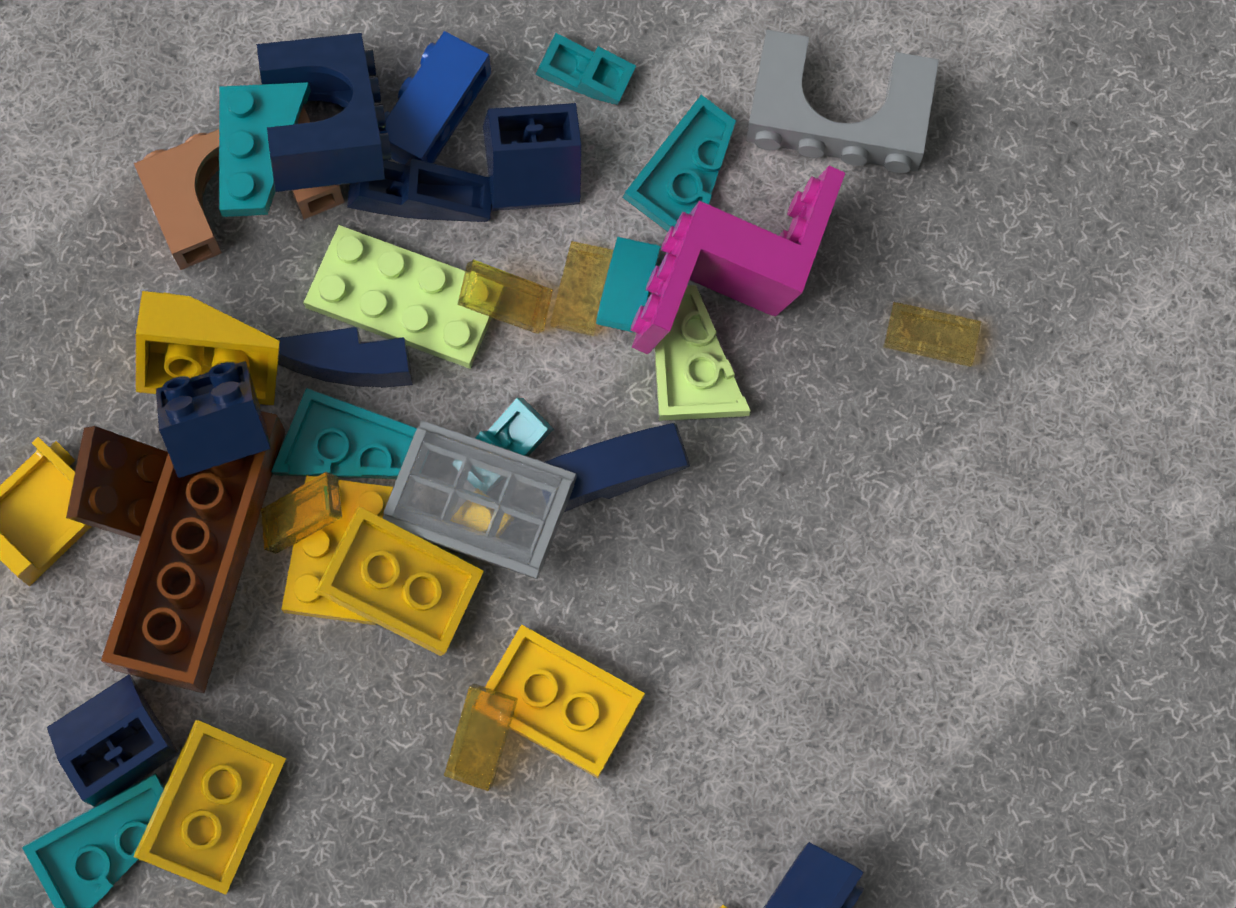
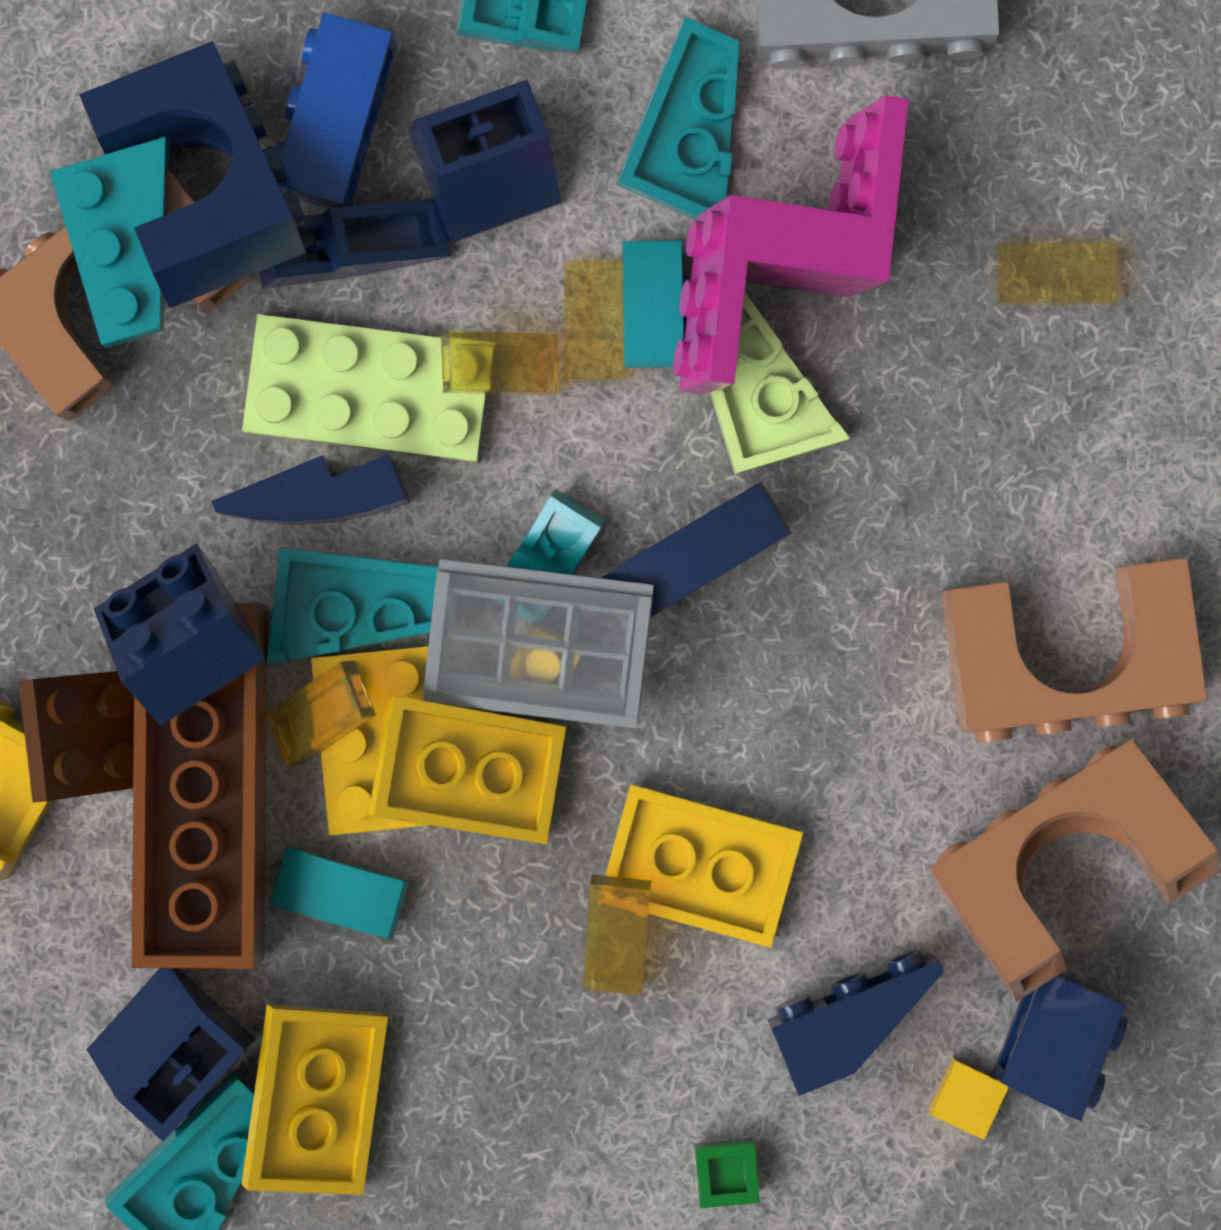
camera: 10 degrees left, 15 degrees up
(189, 338) = (117, 533): yellow slope -> none
(277, 654) = (339, 892): none -> teal slope
(635, 856) = (842, 1030): none -> dark blue slope
(824, 627) = (1155, 670): none -> nougat arch
(888, 723) = (1111, 797): none -> nougat arch

